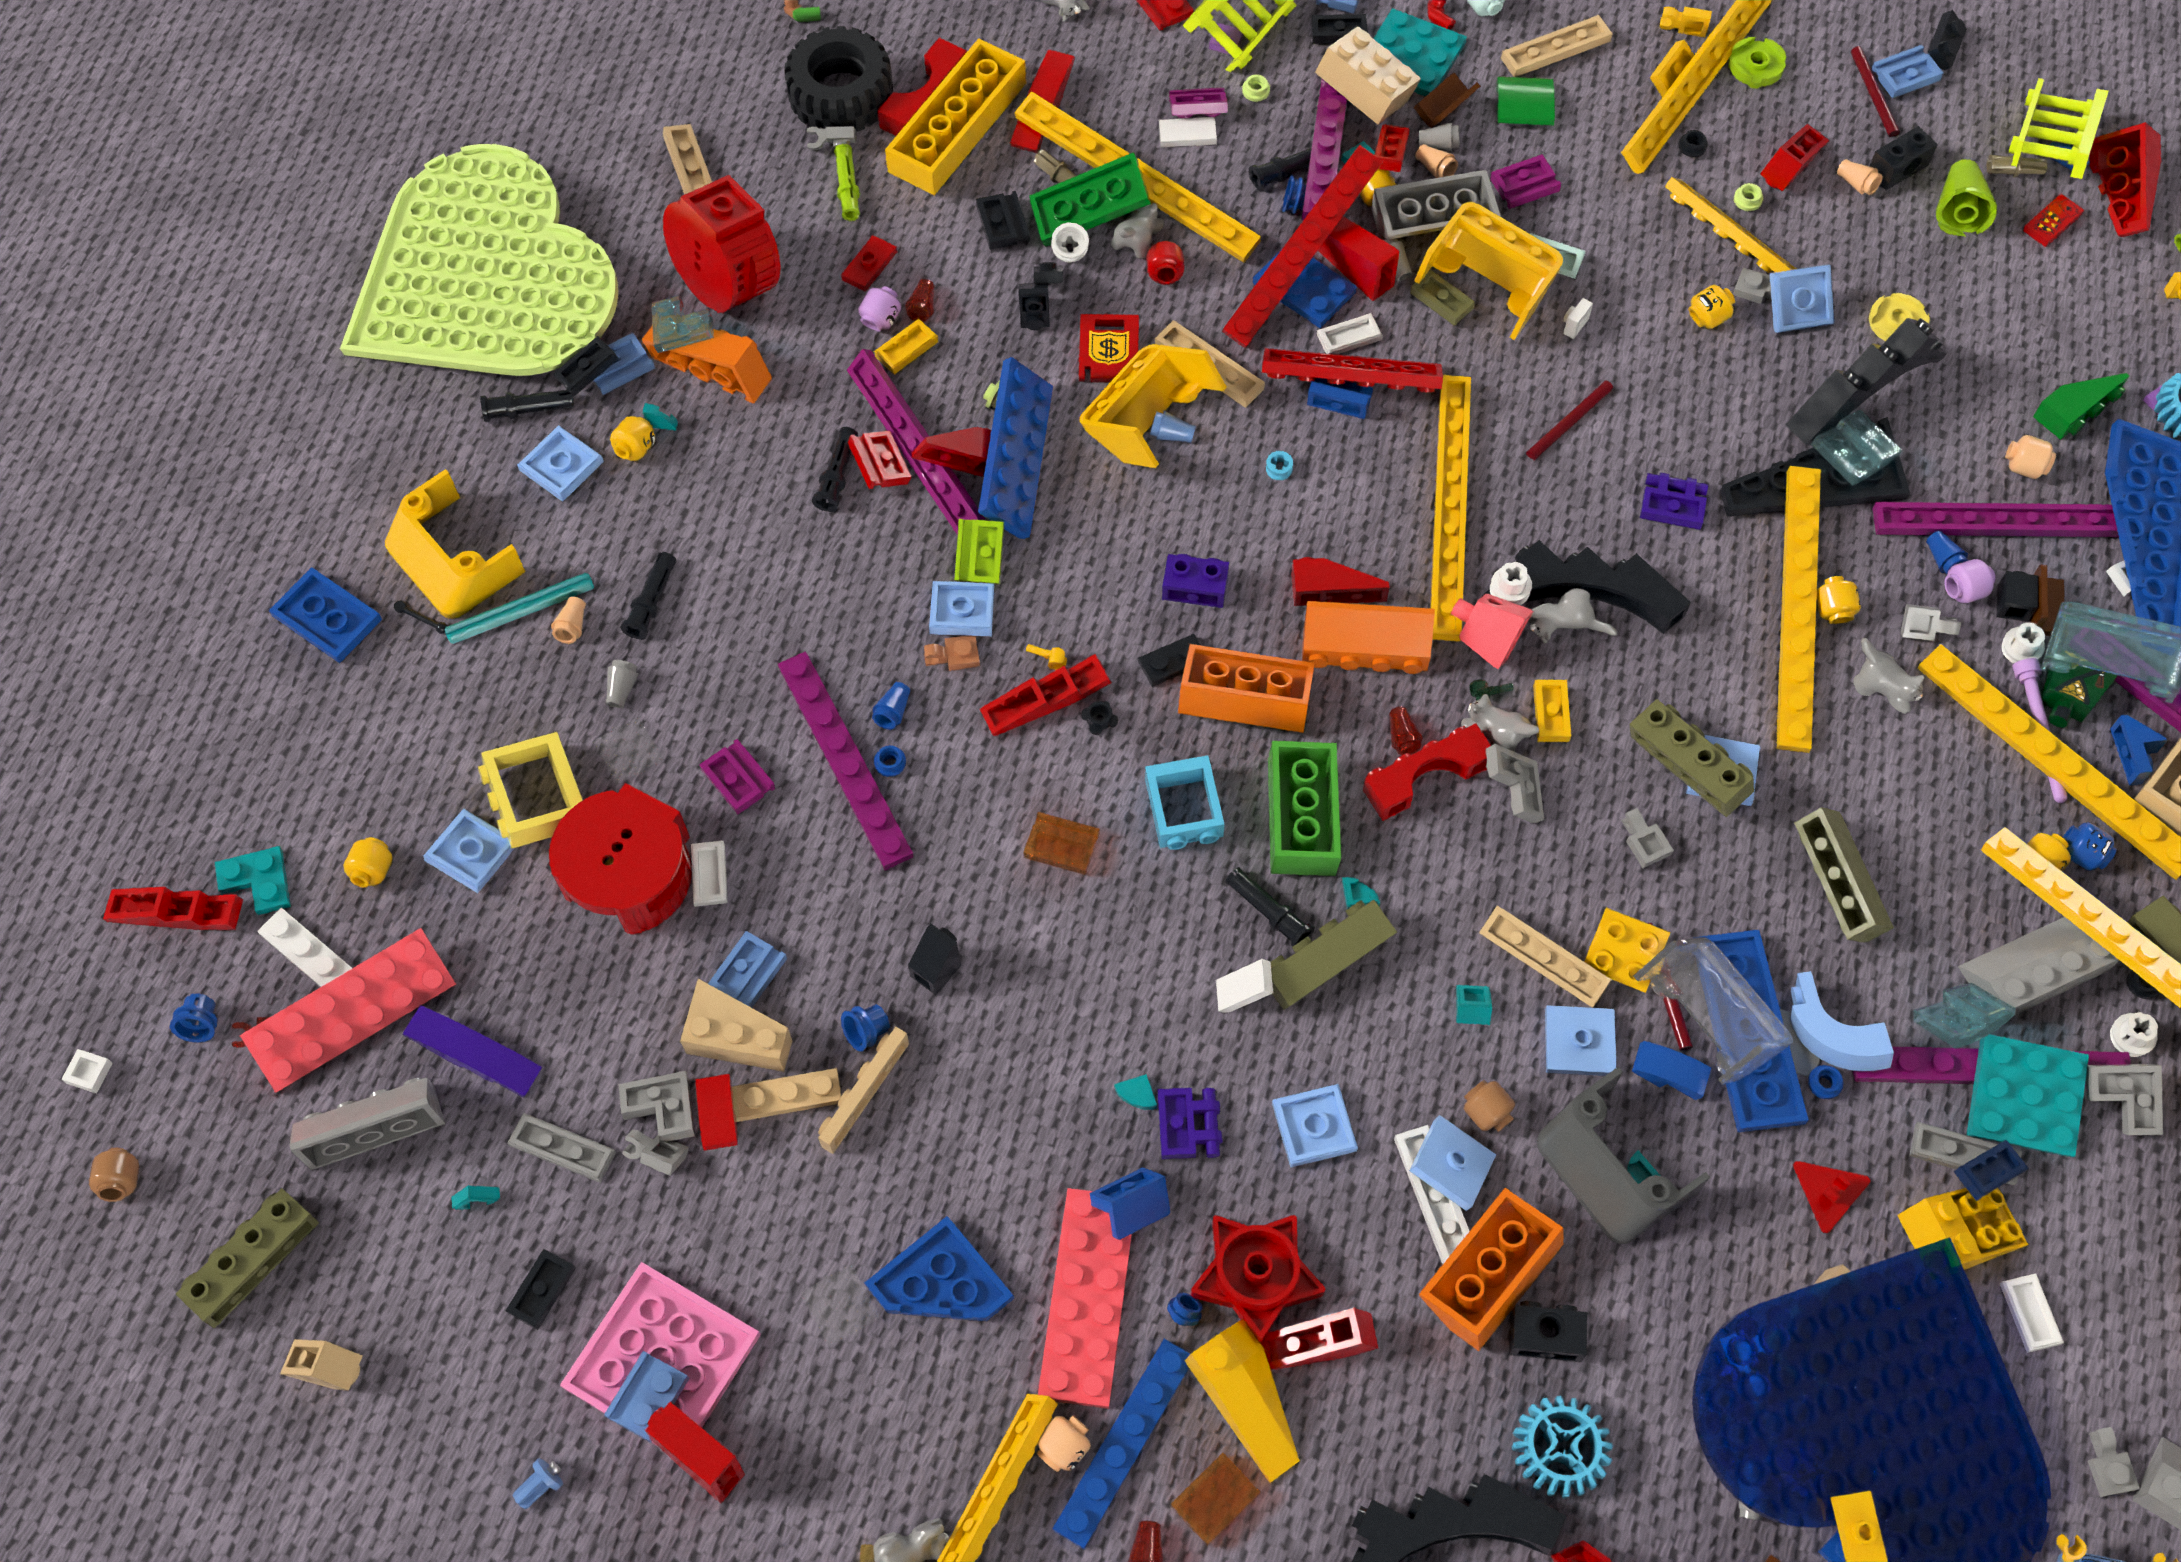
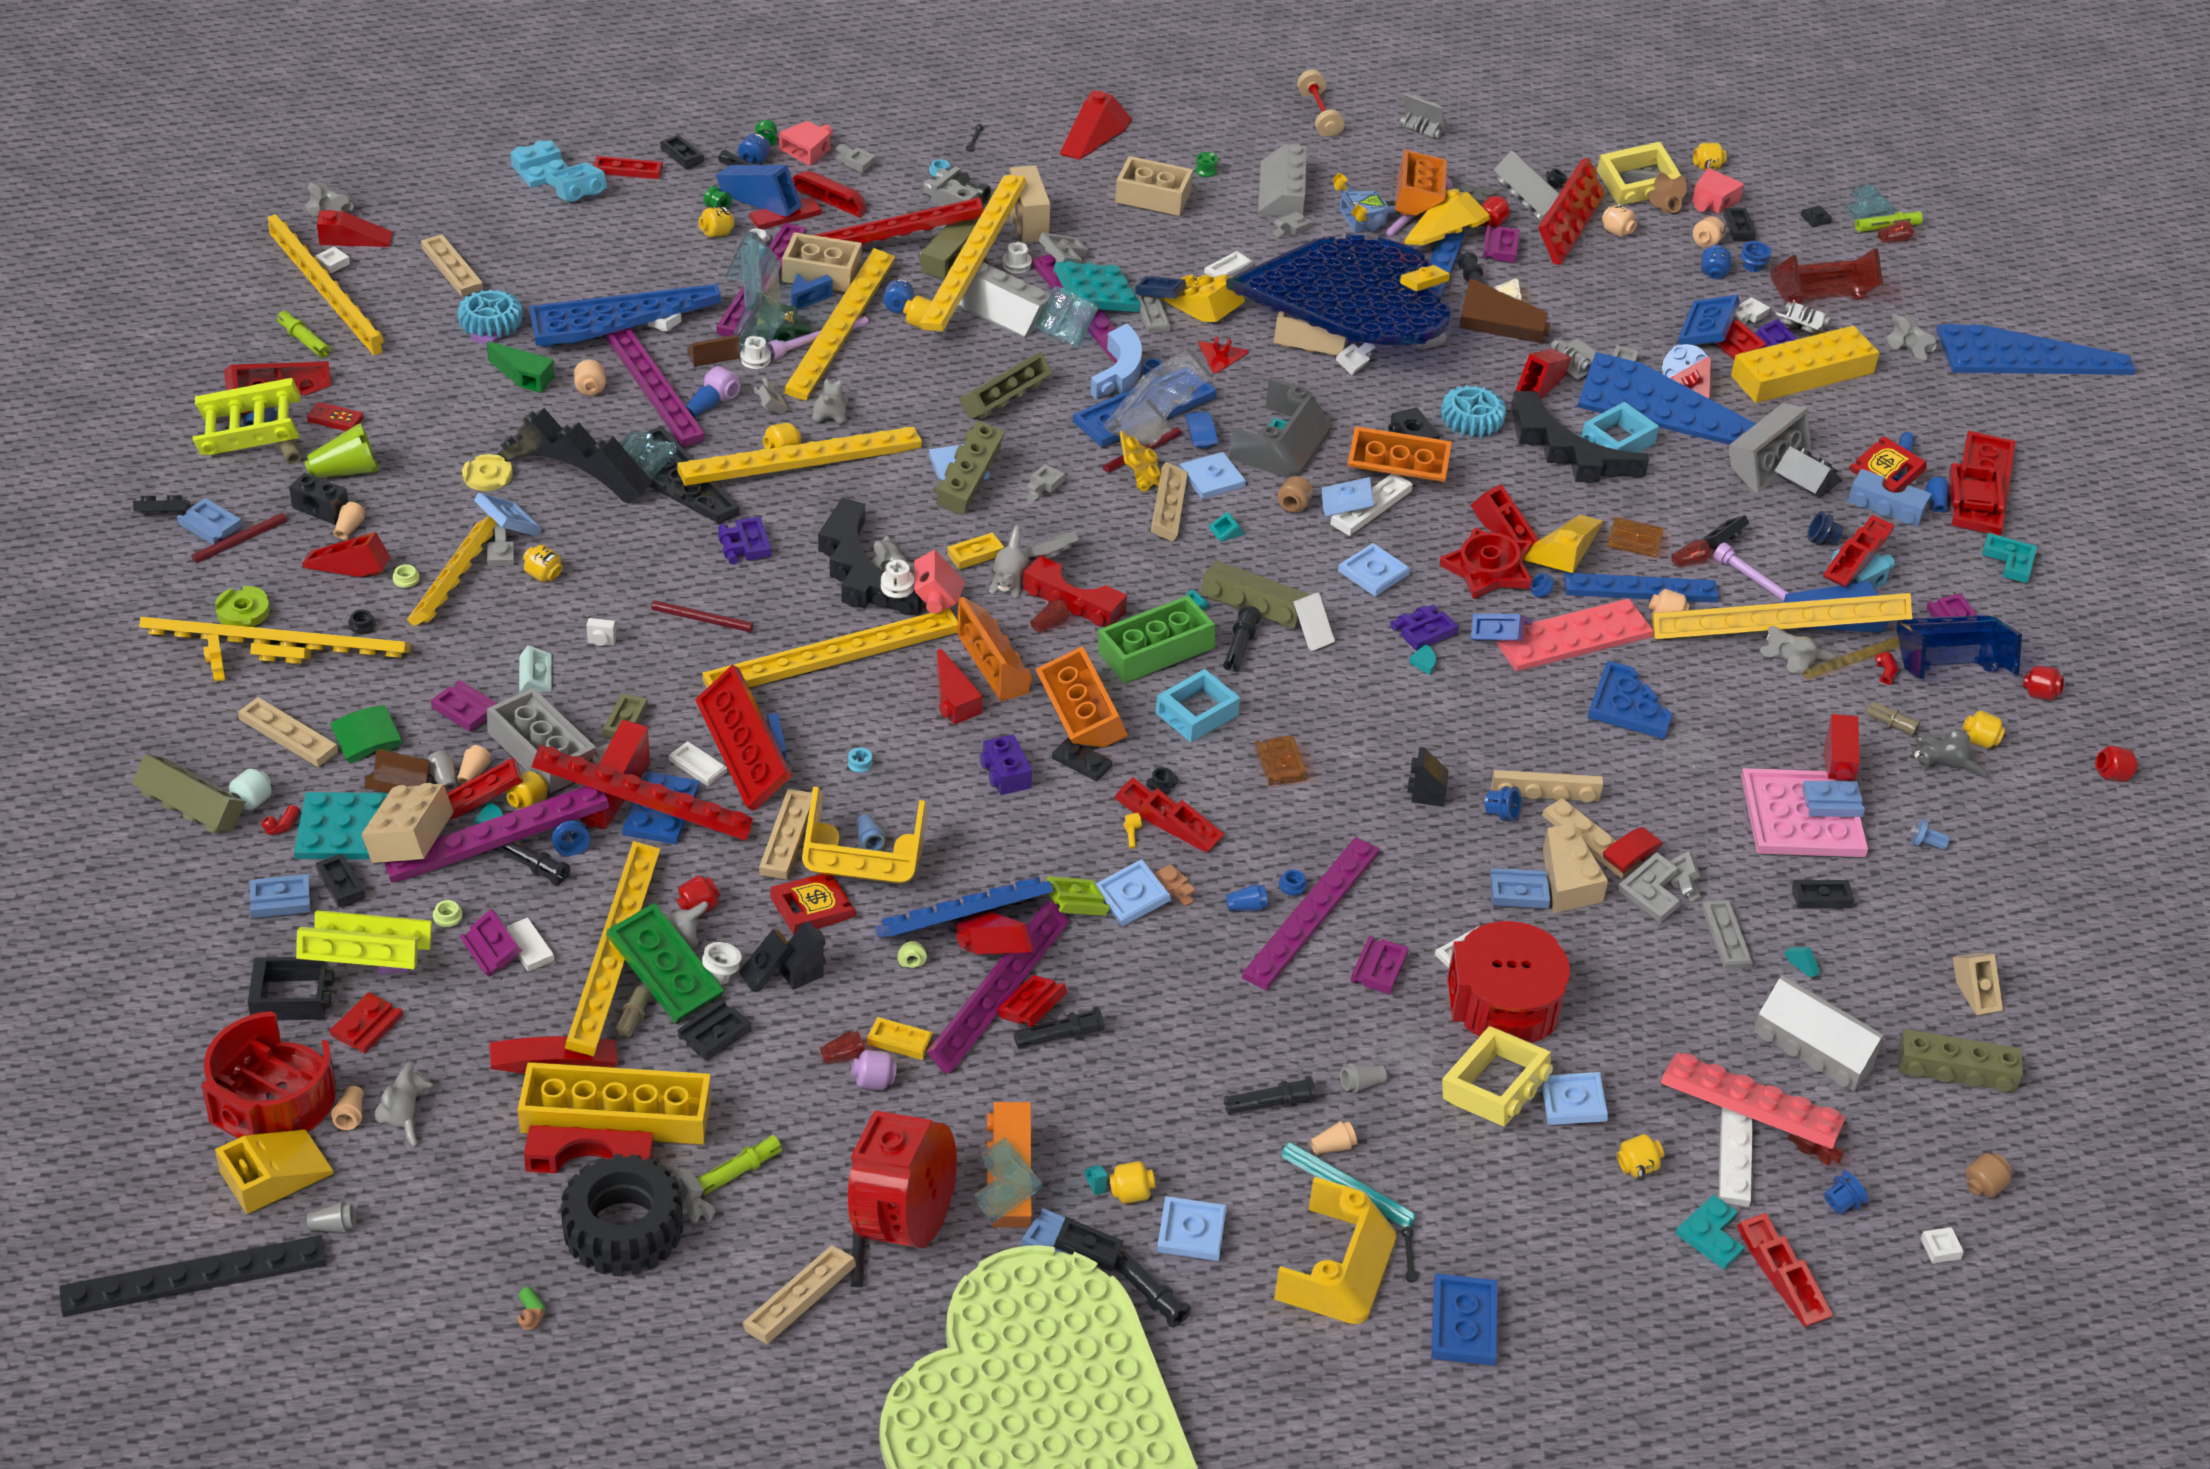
camera: 125 degrees left, 20 degrees down
(472, 1051) = (1715, 1012): dark purple slope -> none
(869, 263) = (822, 1109): red plate -> none
(1480, 687) = (982, 587): clear green hand -> none
(1498, 253) = (585, 659): yellow windscreen -> none
(2017, 596) = (717, 356): black brick -> none

